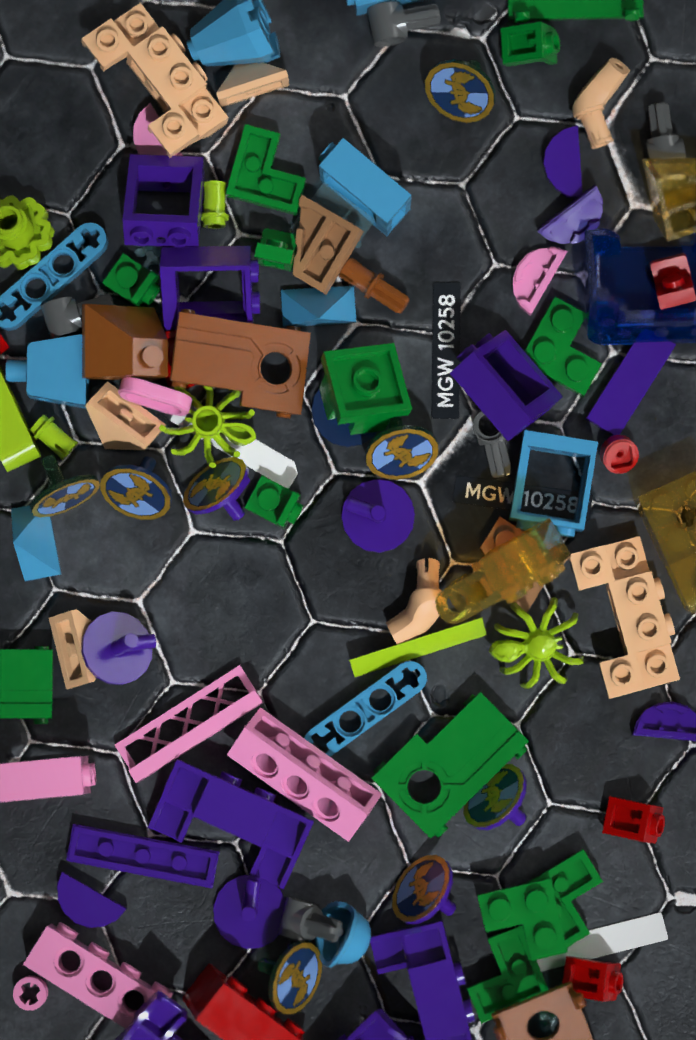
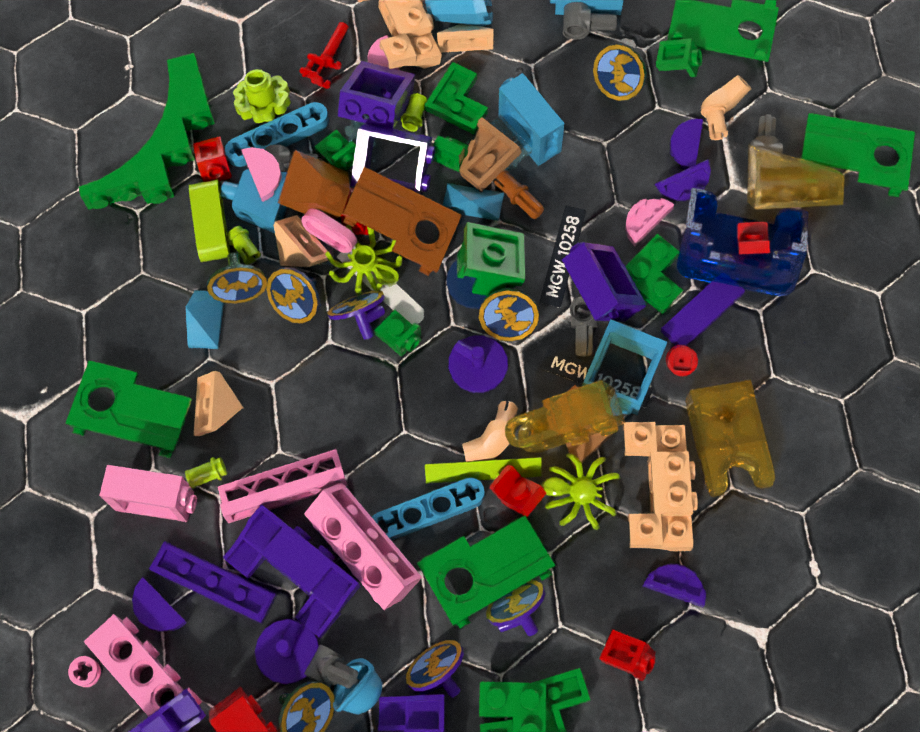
camera: 10 degrees right, 15 degrees down
(54, 341) = (264, 171): none -> bright pink tile
(80, 151) = (326, 58): none -> red piece
(96, 732) = (206, 472): none -> lime pin
(117, 648) = (242, 411): shield -> none
(465, 664) = (517, 491): none -> red bracket

